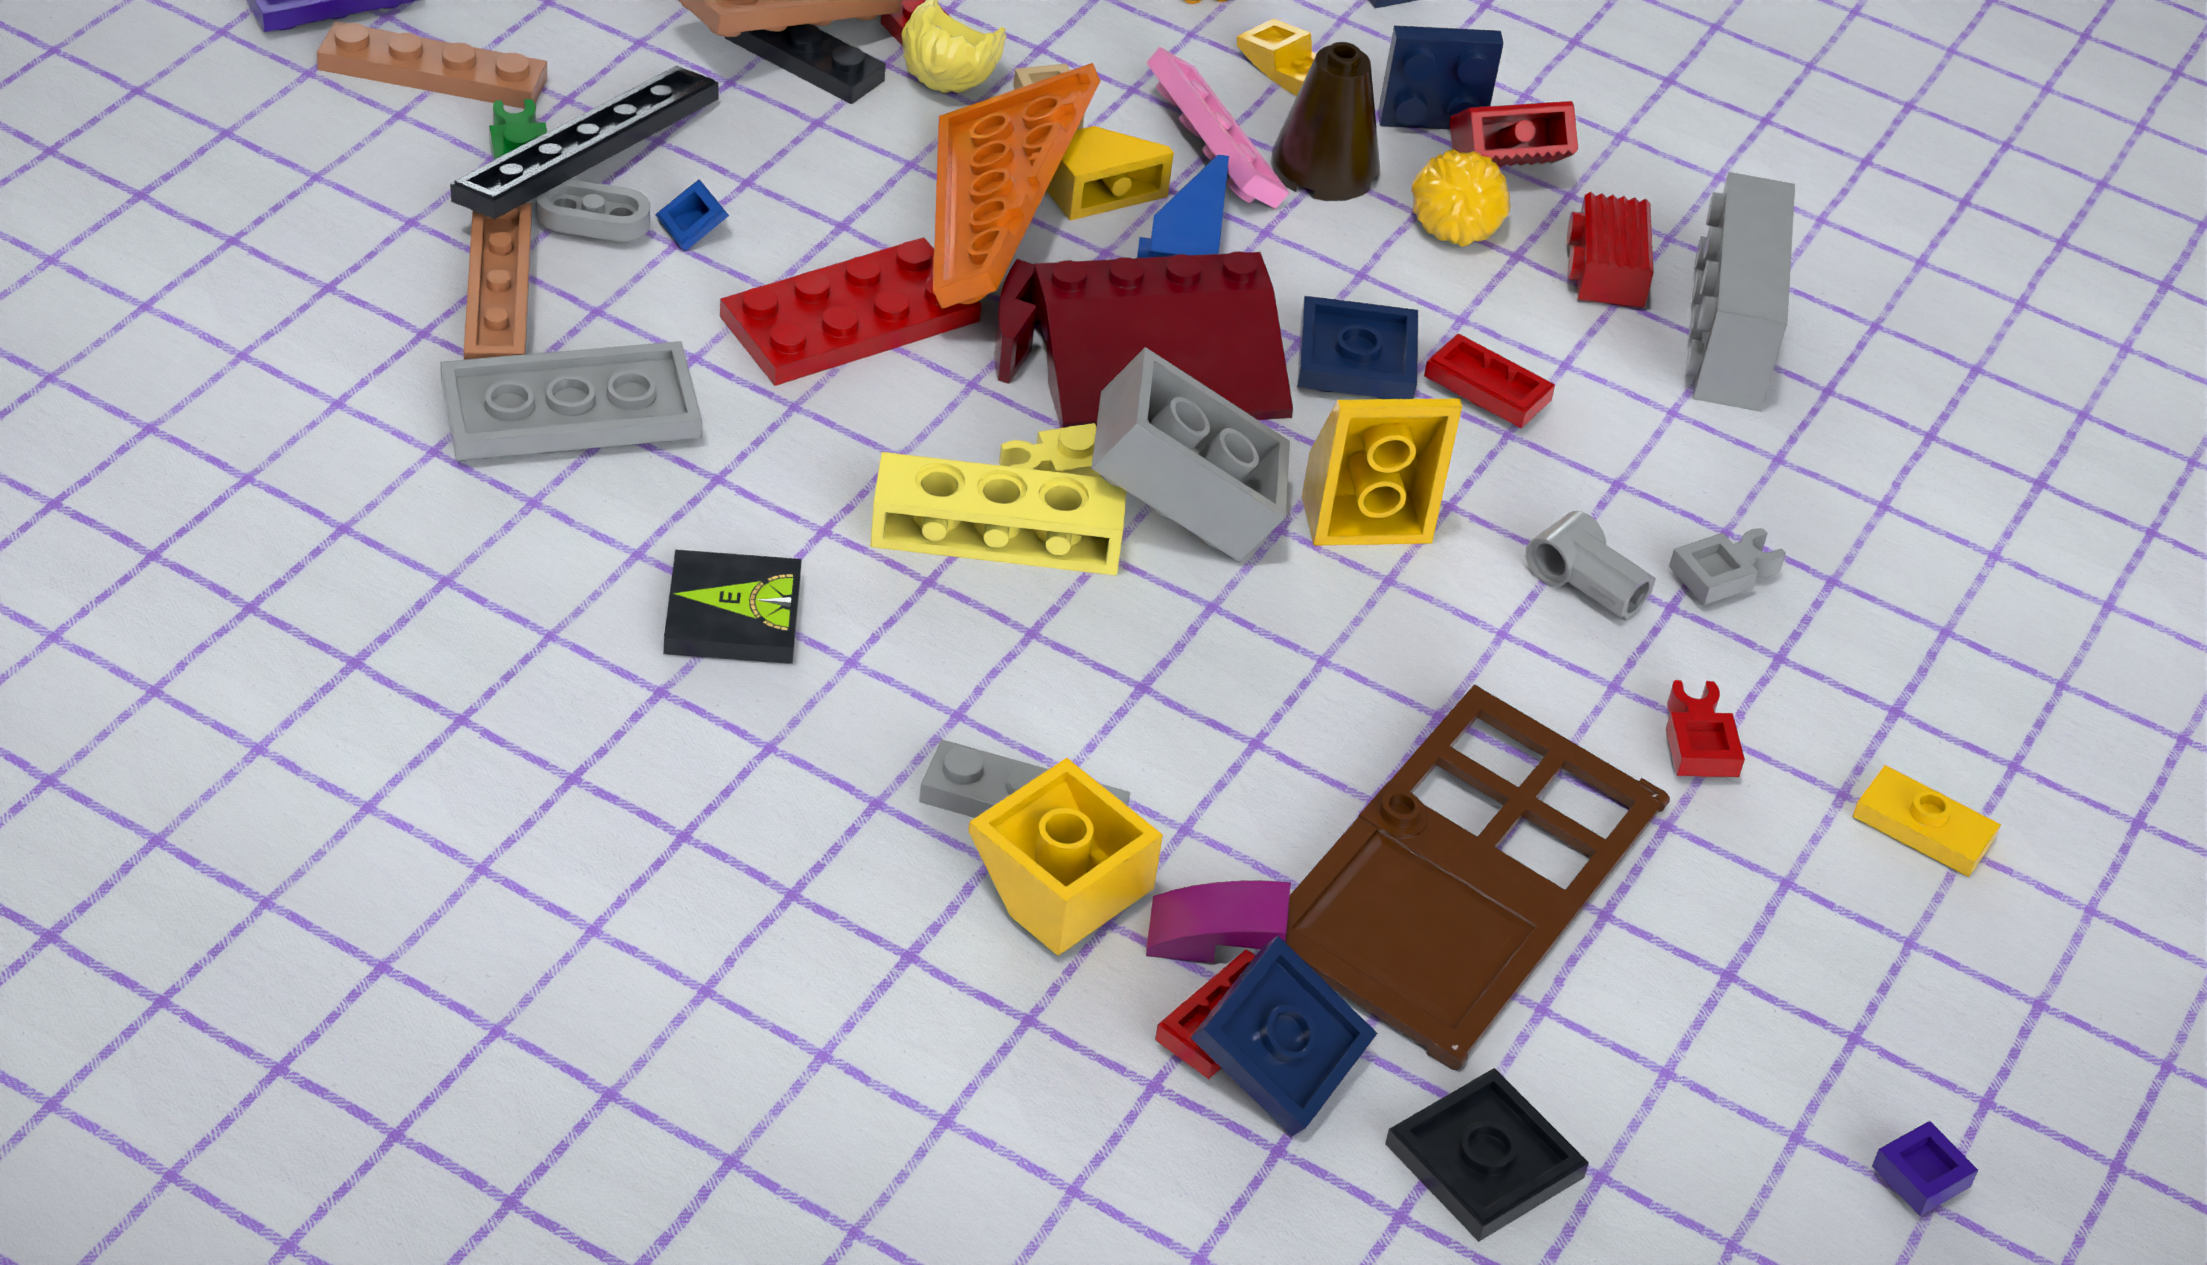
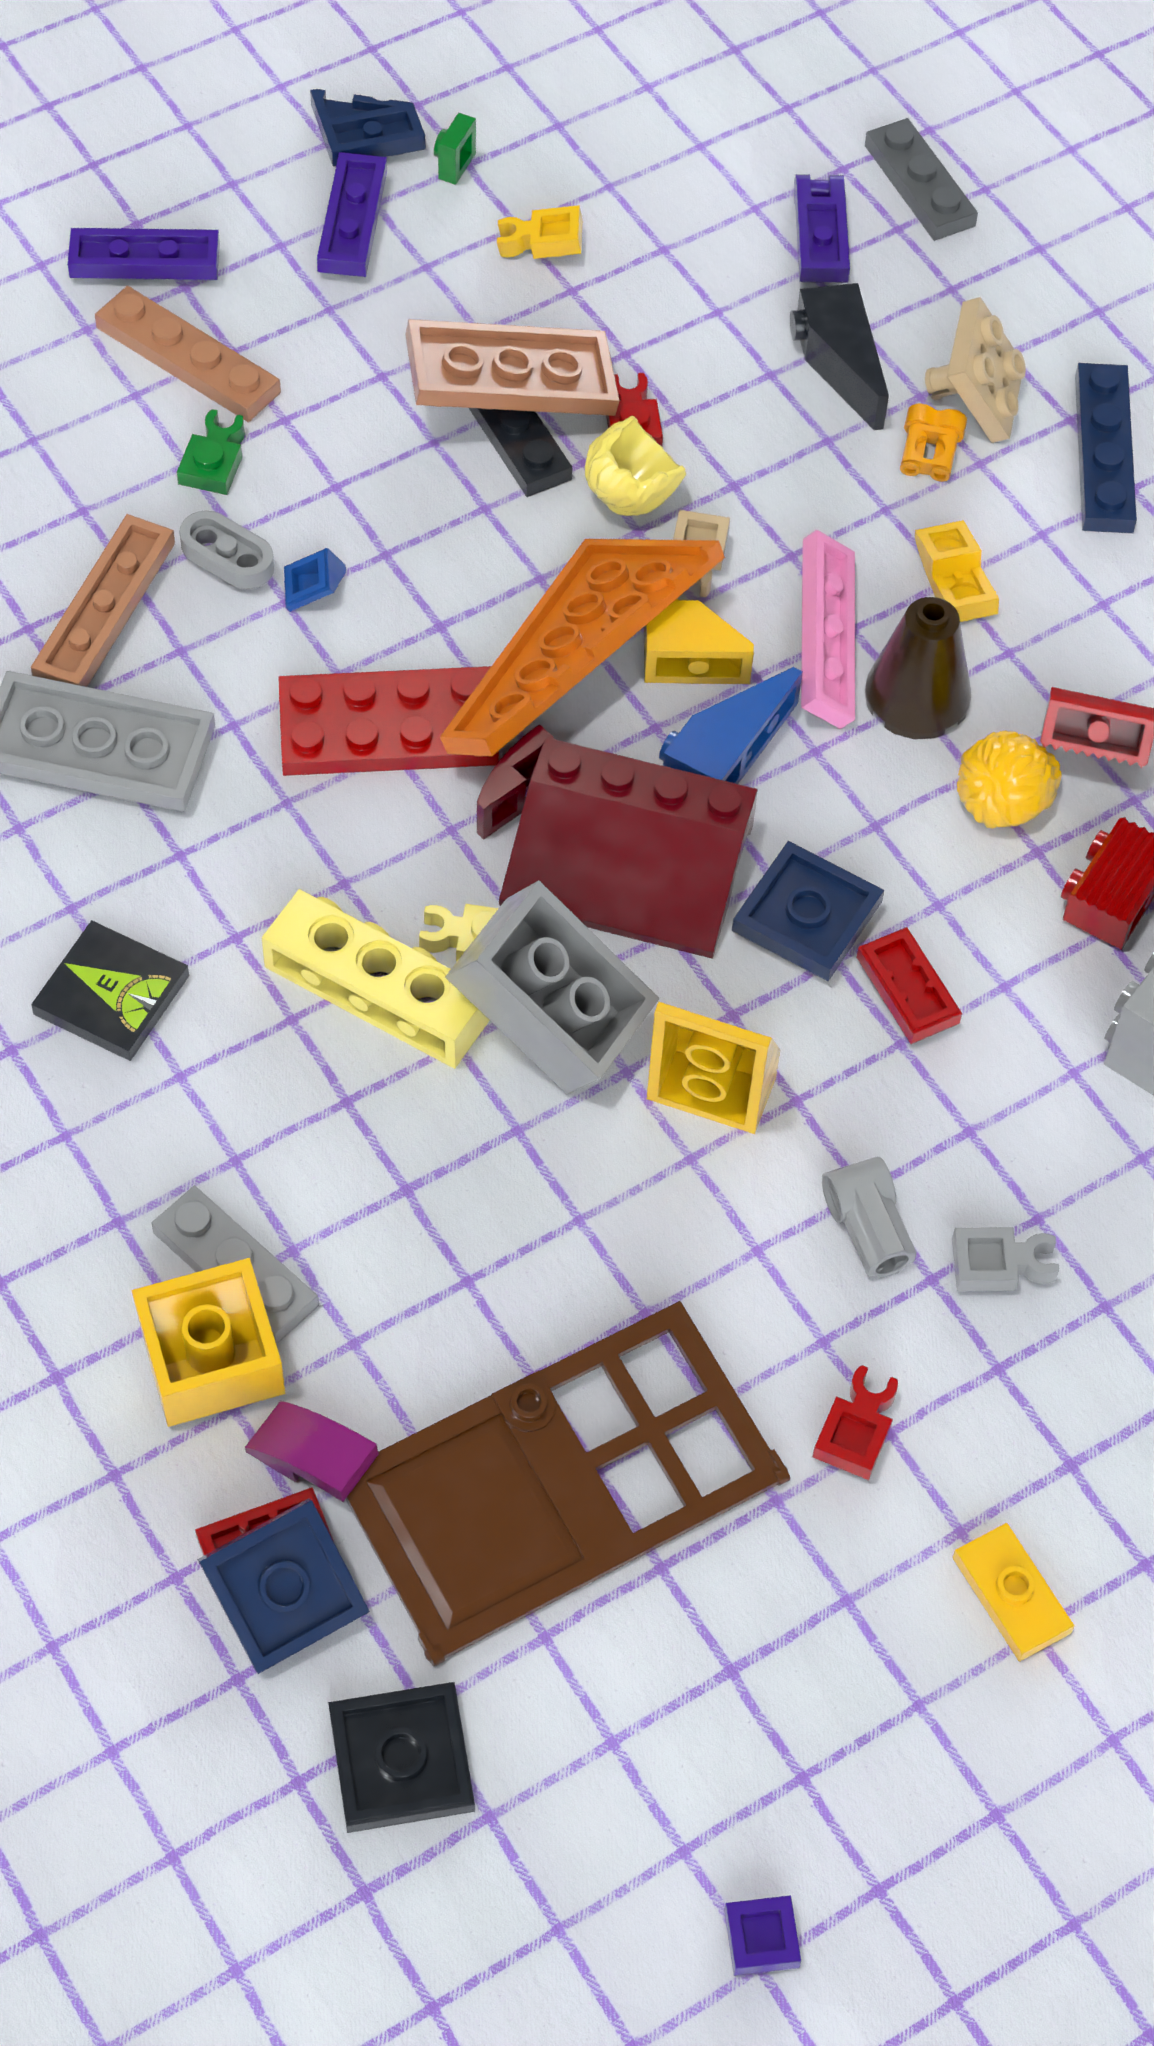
camera: 30 degrees right, 15 degrees up
(583, 142) = (256, 478): black tile -> none
(1437, 75) = (1060, 643): dark blue plate -> none

